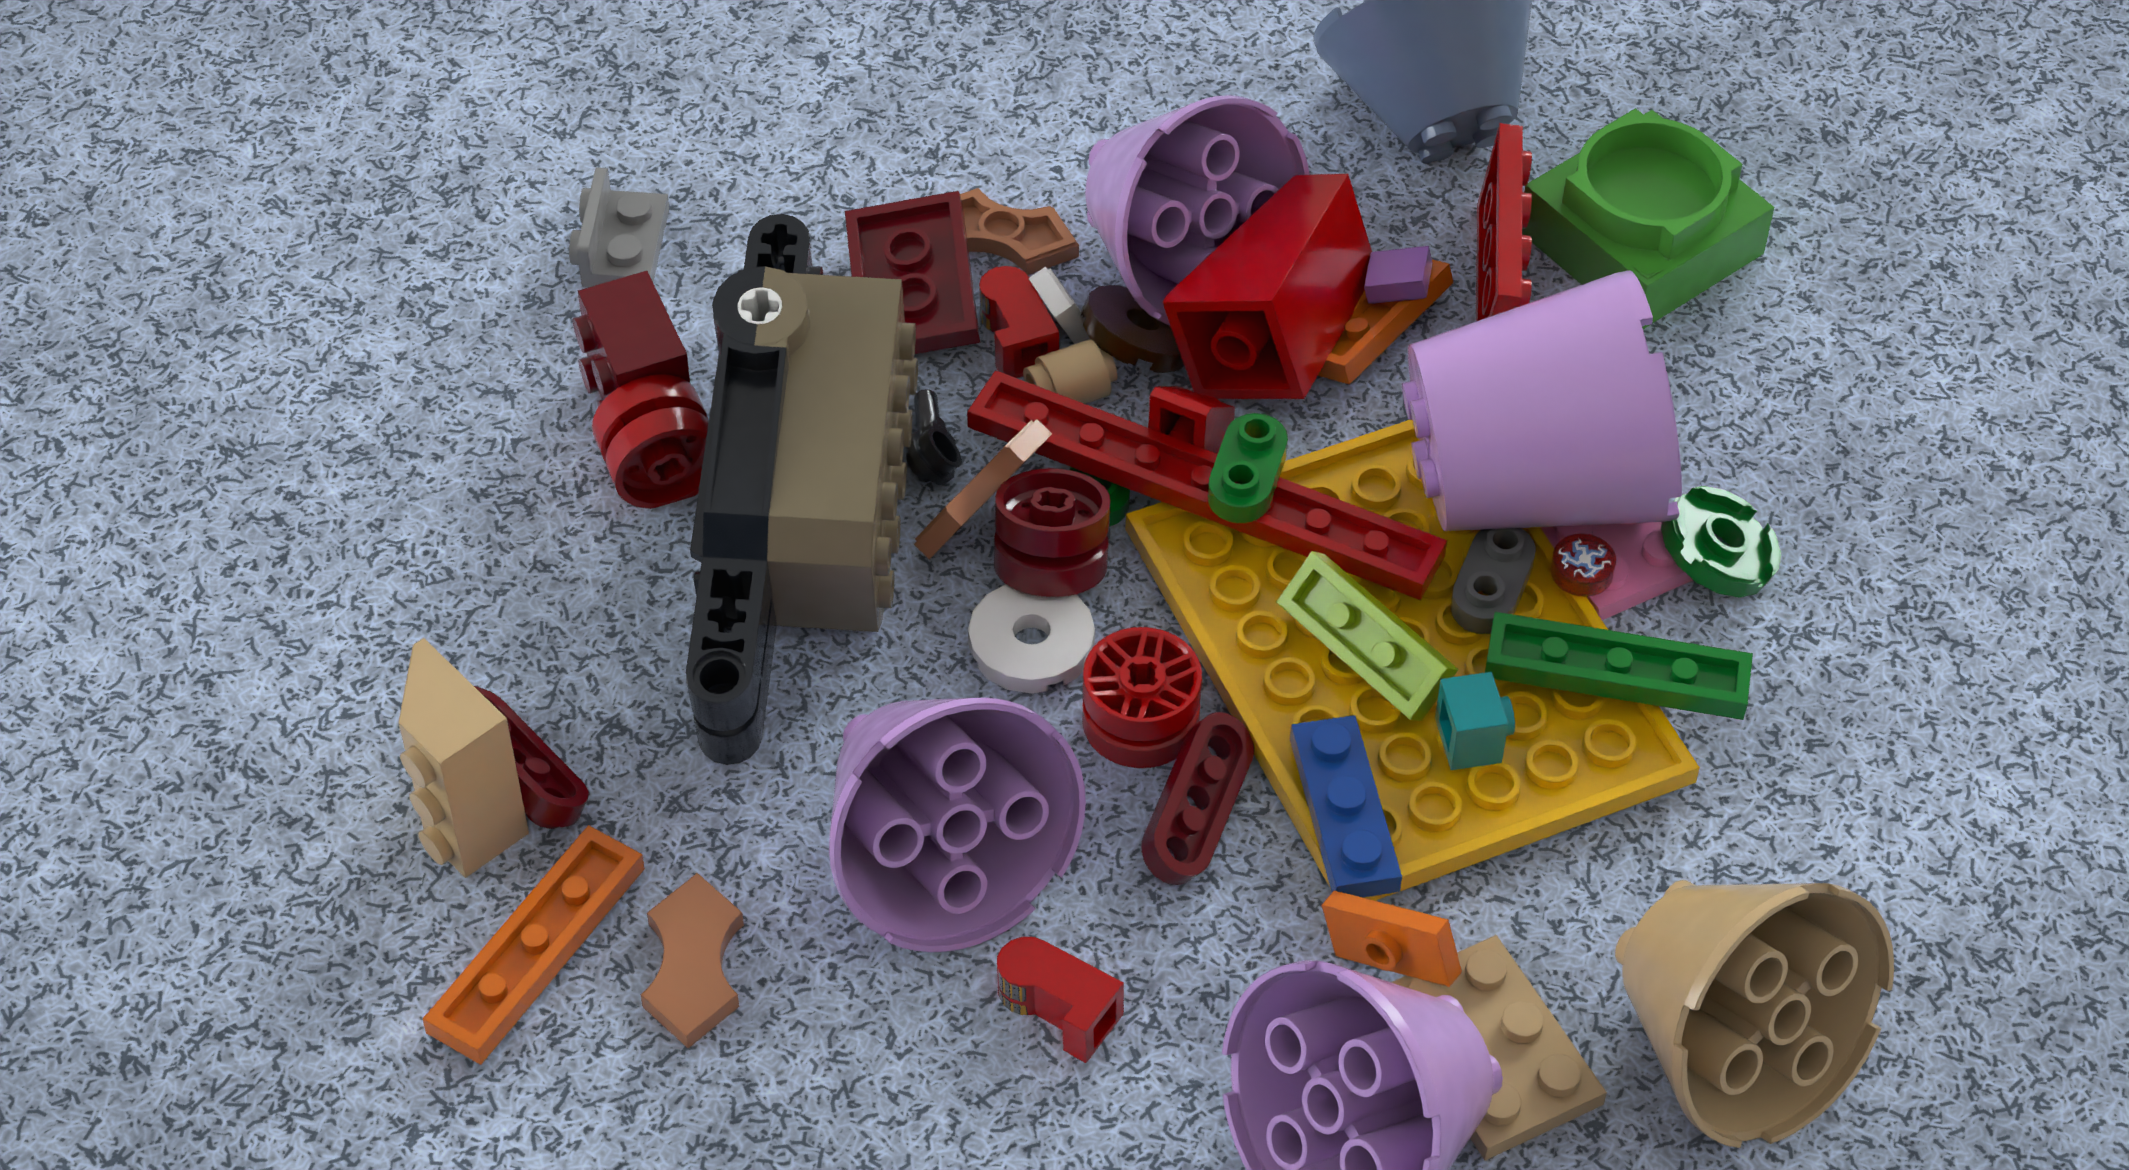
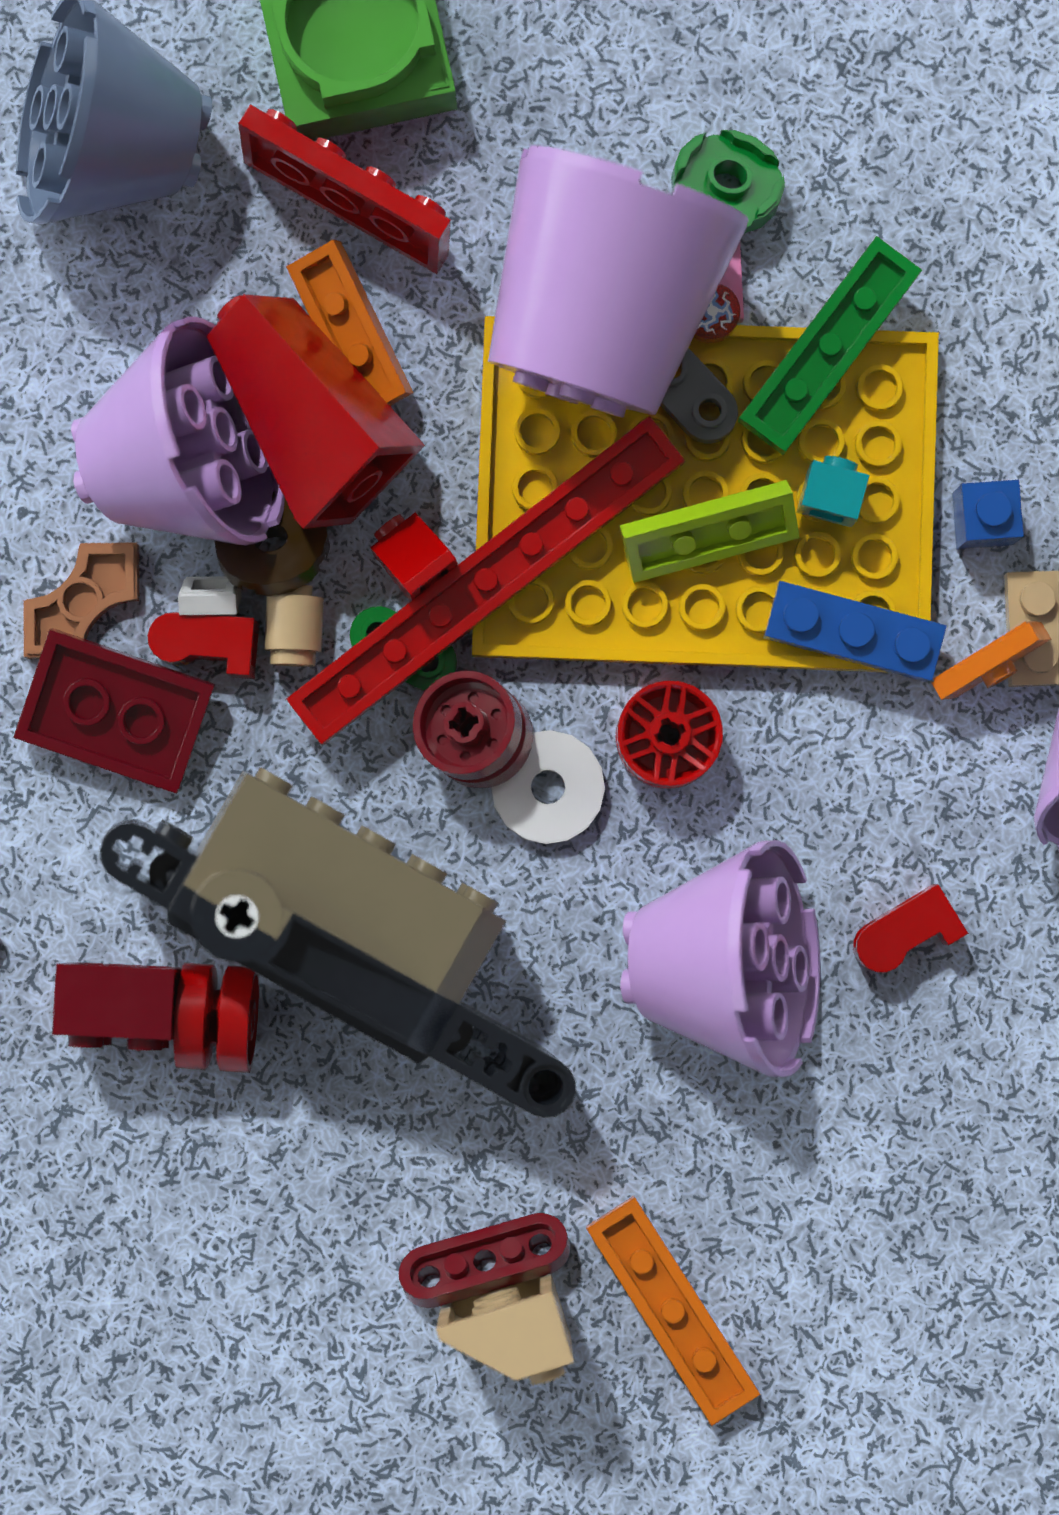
camera: 65 degrees left, 35 degrees up
(690, 986) = (763, 1203): nougat tile -> none
(932, 448) = (315, 776): black plate -> none
(981, 487) = (397, 751): nougat tile -> none
(1213, 786) = (801, 747): dark red plate -> none
(1254, 457) = (503, 541): green plate -> none
(1398, 274) = (327, 291): medium lavender tile -> none
(1543, 882) = (987, 514): none -> blue brick

